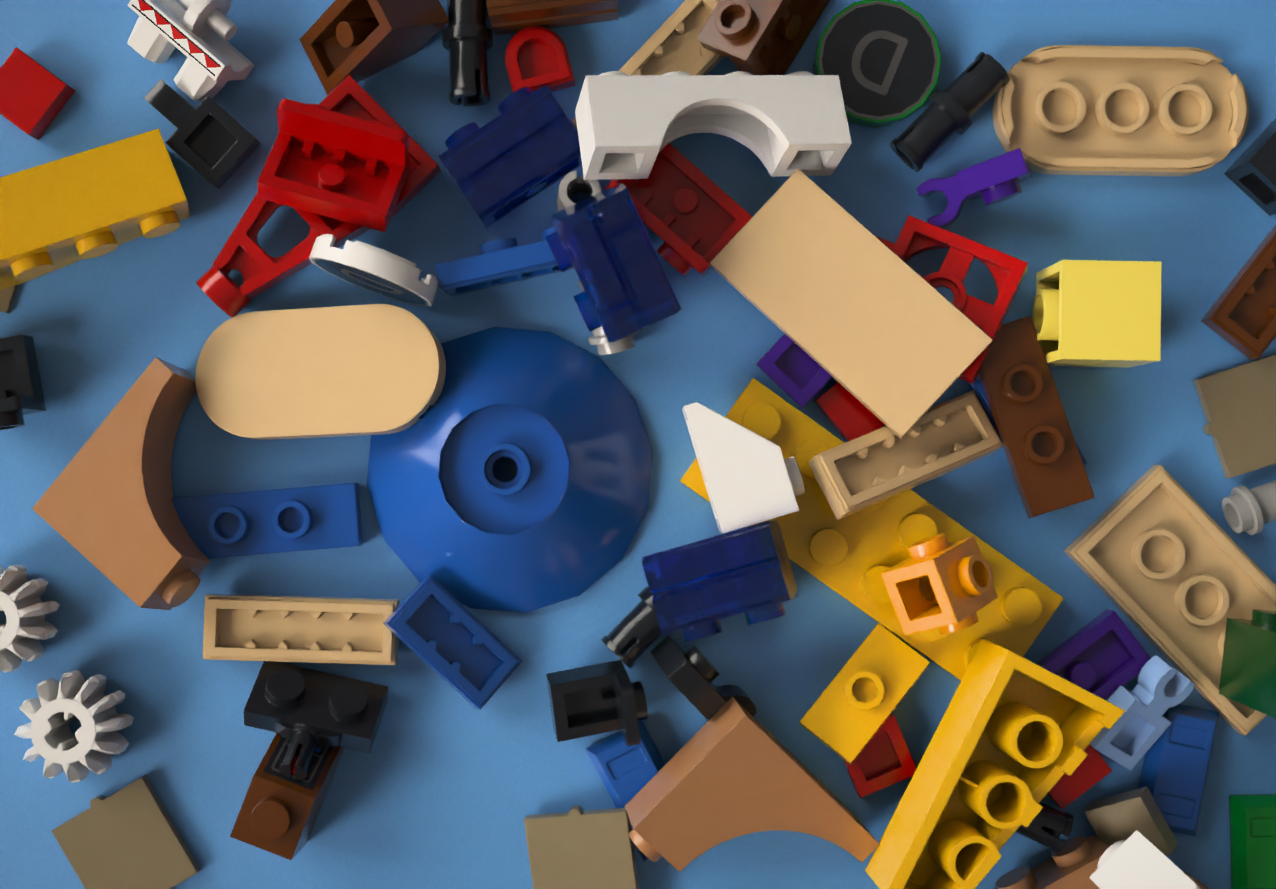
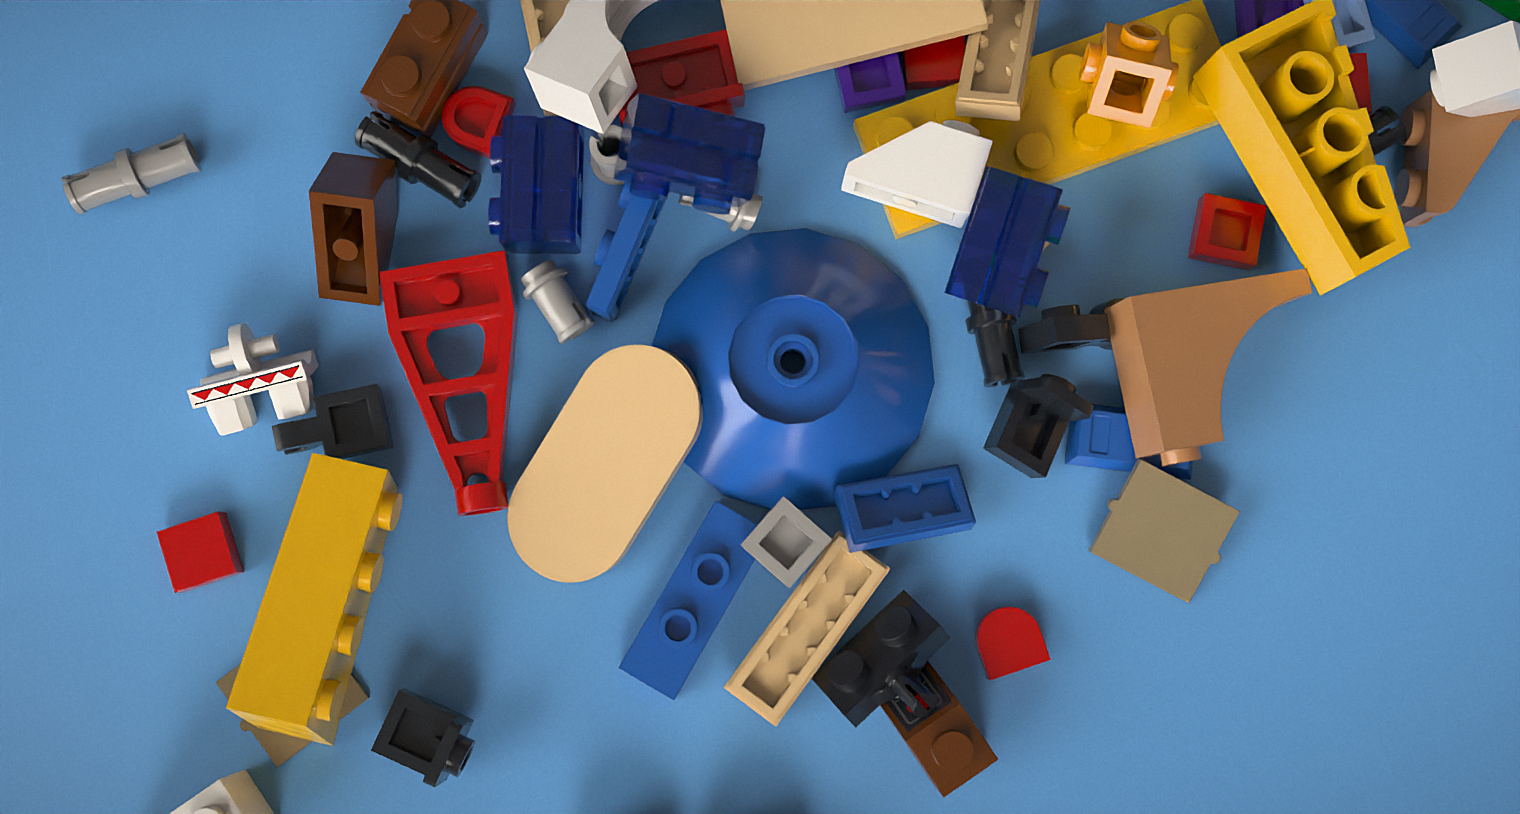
camera: 50 degrees left, 5 degrees down
(119, 493) = (590, 702): medium nougat arch -> none
(335, 165) = (447, 325): red bracket -> none
(354, 565) = (786, 542): none -> light grey tile
(374, 270) = (556, 355): white tile -> none
(405, 801) = (1009, 642): none -> red tile
(430, 234) = (556, 300): none -> light grey pin
(864, 693) = (1173, 203): yellow plate -> none
(1124, 813) = (1410, 65): dark tan tile -> none

